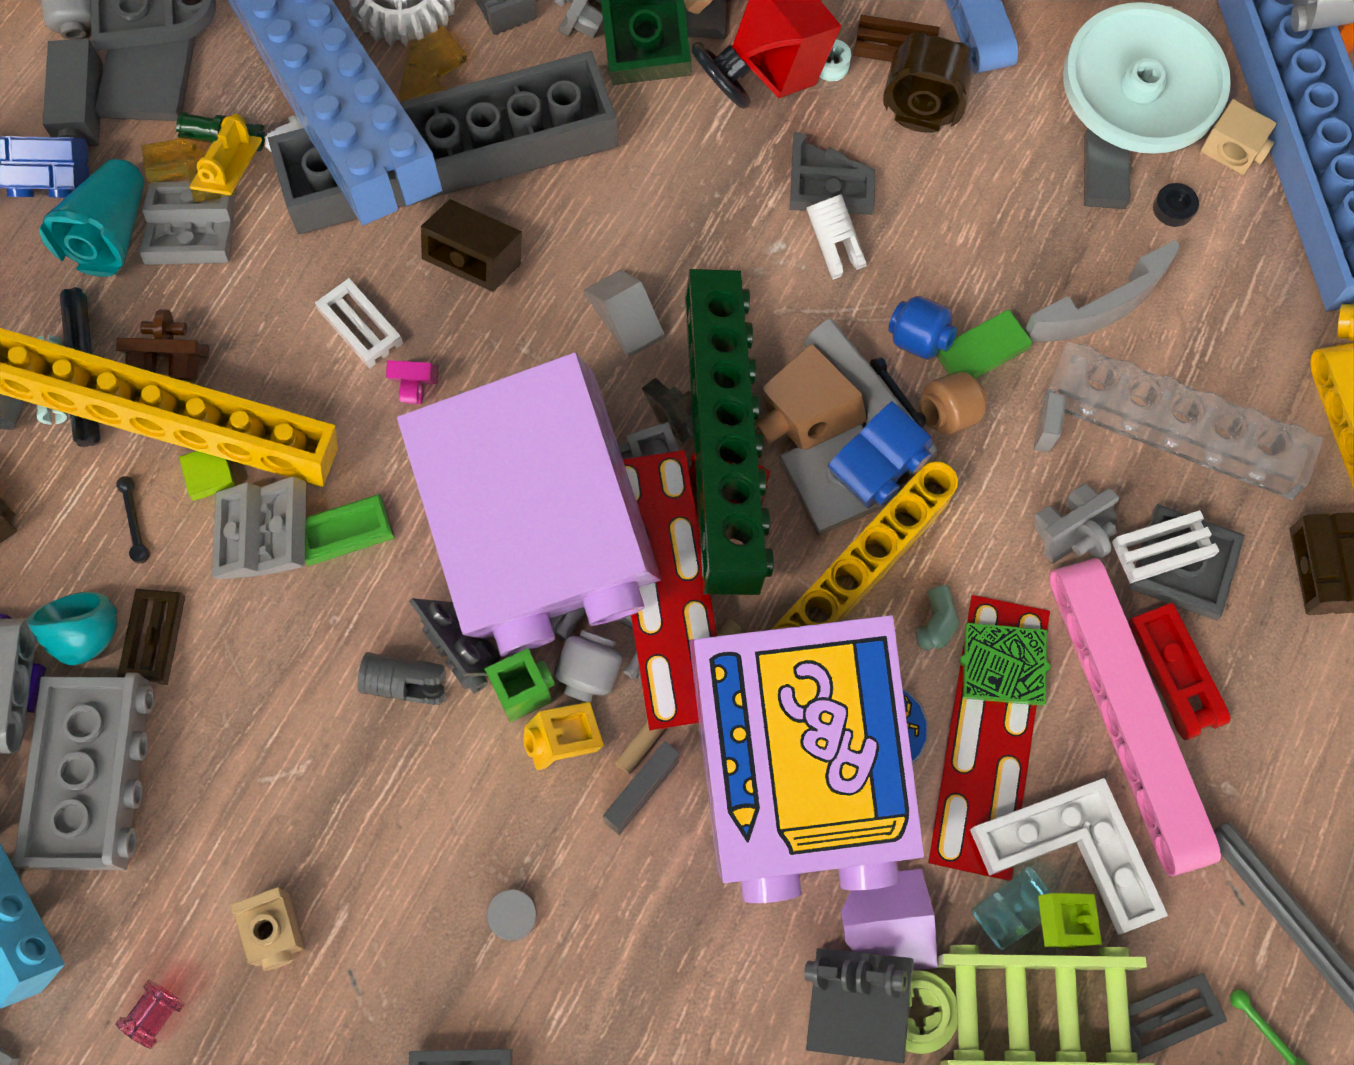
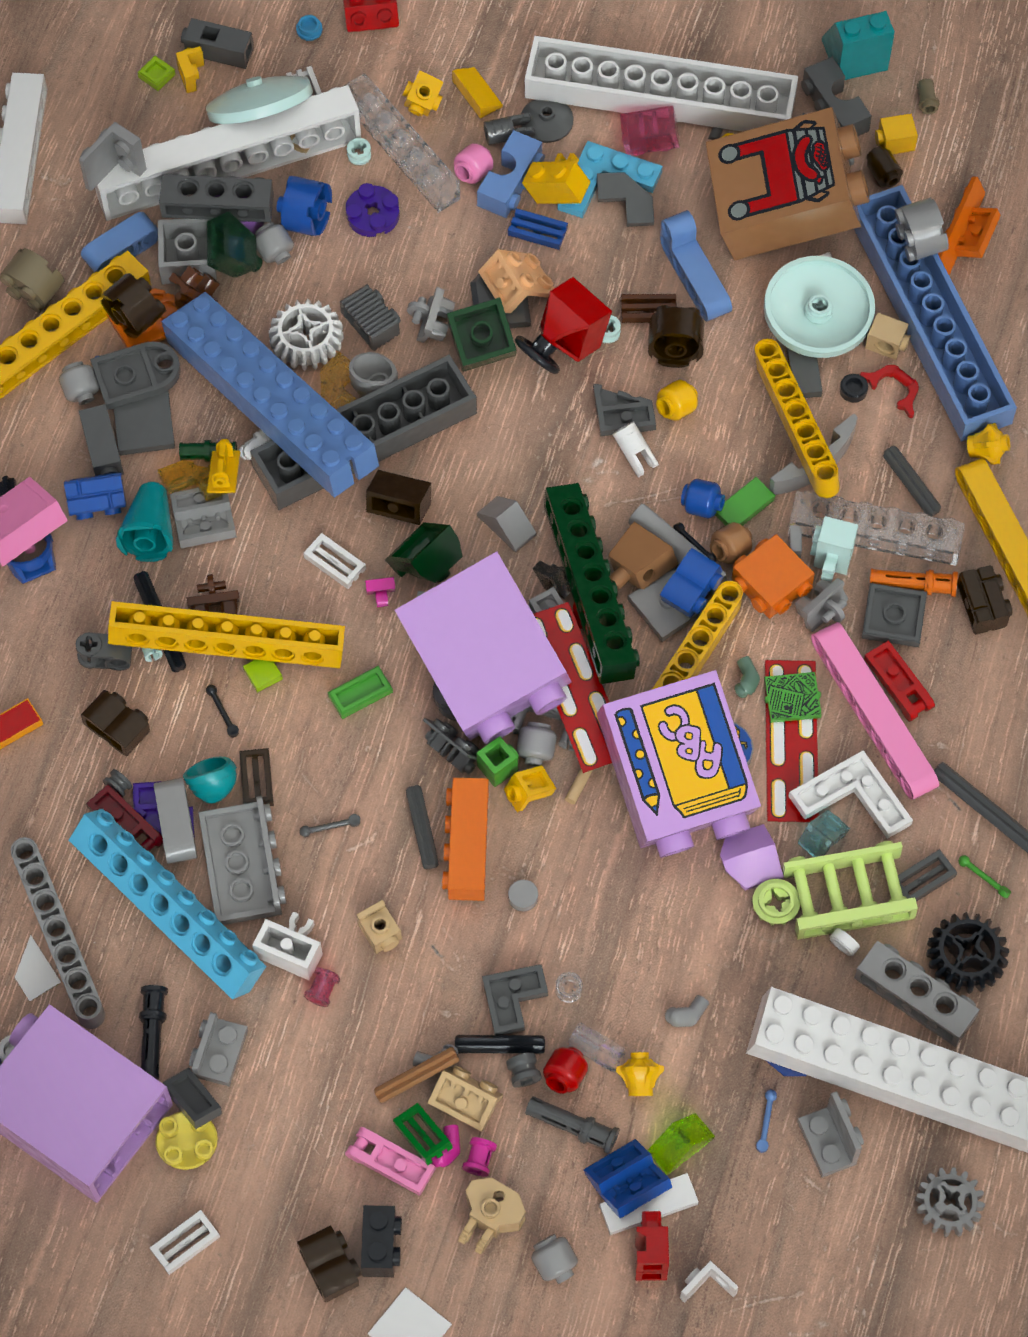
camera: 10 degrees left, 5 degrees down
(108, 938) = (289, 948): none -> white brick
(259, 529) = (307, 701): light grey slope -> none
(281, 734) = (354, 821): none -> dark grey hinge
(381, 768) = (422, 827): none -> dark grey axle
(401, 679) = (423, 772): dark grey hinge -> none
(441, 807) = (467, 839): none -> orange brick
(475, 57) = (370, 372): none -> light grey hat
(491, 336) = (427, 553): none -> dark green brick
(641, 788) = (585, 808): dark grey tile -> none
(859, 1004) = (740, 902): dark grey hinge -> none
(912, 176) = (677, 400): none -> yellow head
(1008, 467) = (773, 576): none -> orange brick
(1069, 920) = (854, 831): lime bracket -> none
(1089, 236) = (797, 418): none -> yellow beam
(1112, 437) = (833, 546): none -> light aqua brick
(1199, 534) = (870, 599): white tile -> none
(1243, 357) = (912, 481): none -> dark grey axle
(1246, 519) = (928, 582): none -> orange pin
(1250, 201) = (894, 371): none -> red helmet

